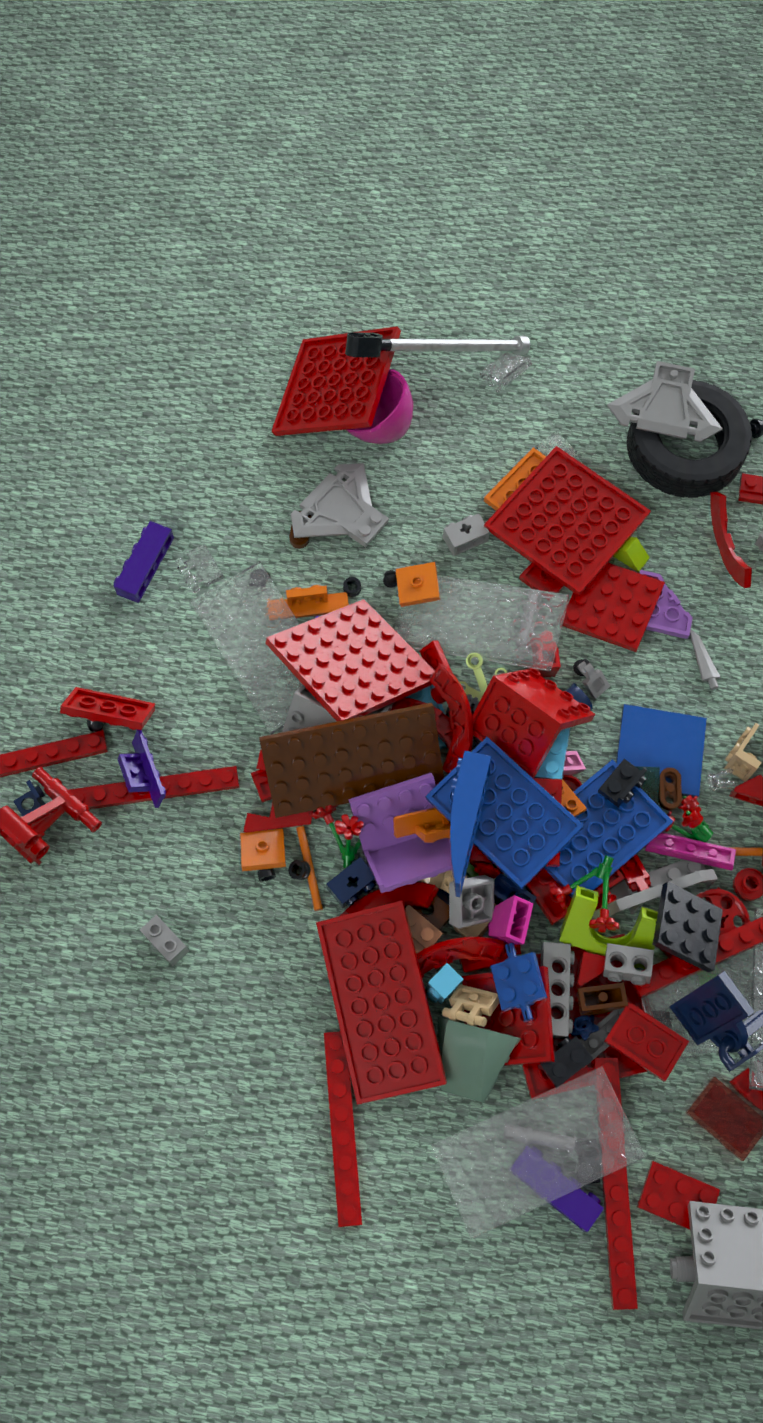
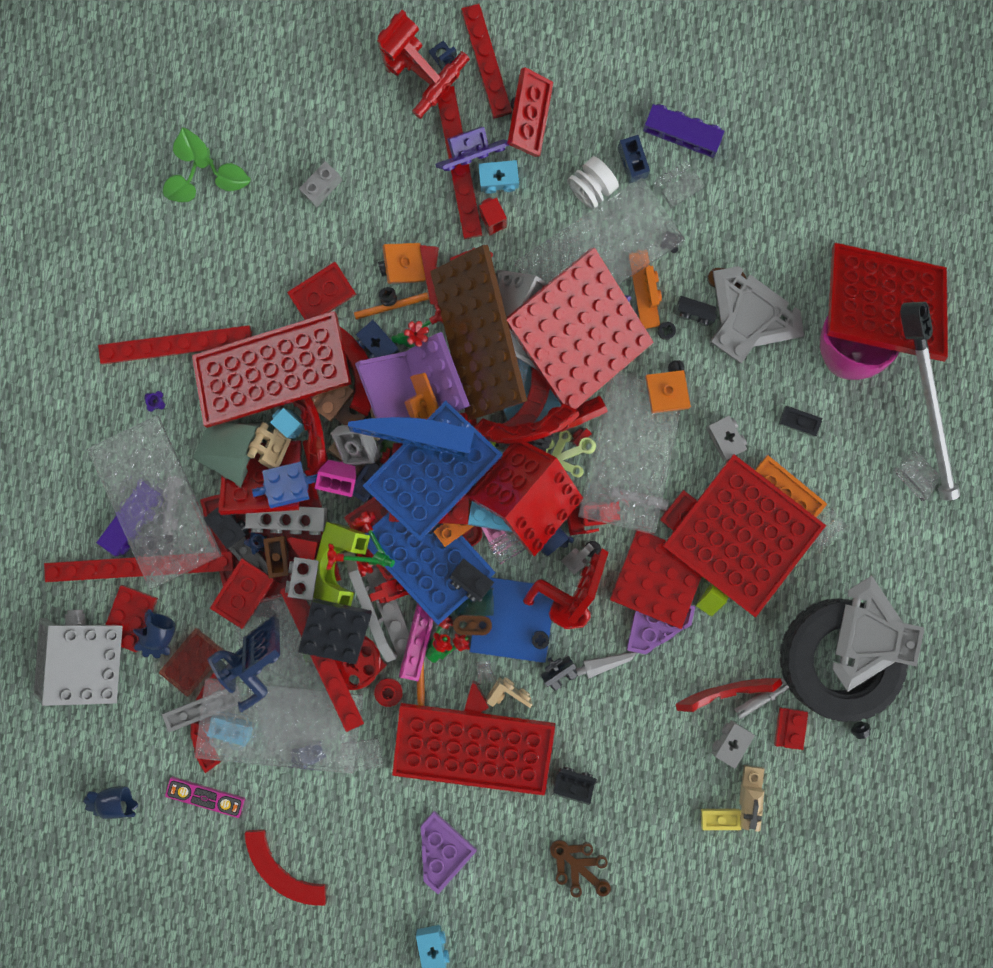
camera: 90 degrees right, 20 degrees up
(114, 1079) = (190, 147): none -> bright green plant
(169, 608) = (633, 158): none -> dark blue brick
(169, 735) = (508, 172): none -> medium azure brick
(191, 647) = (593, 182): none -> white wheel
(218, 749) = (492, 215): none -> red brick
(291, 945) = (322, 292): none -> red plate
(333, 557) = (696, 311): none -> black bracket
(406, 1160) = (149, 398): none -> dark purple plate
(449, 468) = (800, 421): none -> black plate
(463, 672) = (578, 435): none -> red plate
(562, 680) = (575, 524): none -> red bracket
(581, 749) = (506, 547): none -> clear plate
(639, 667) = (573, 610): none -> red plate
(686, 716) = (544, 644): none -> black bush
(699, 1160) = (156, 636): none -> dark blue piece
(715, 705) = (557, 670): none -> black hips
(735, 518) = (759, 700): none -> light grey pin

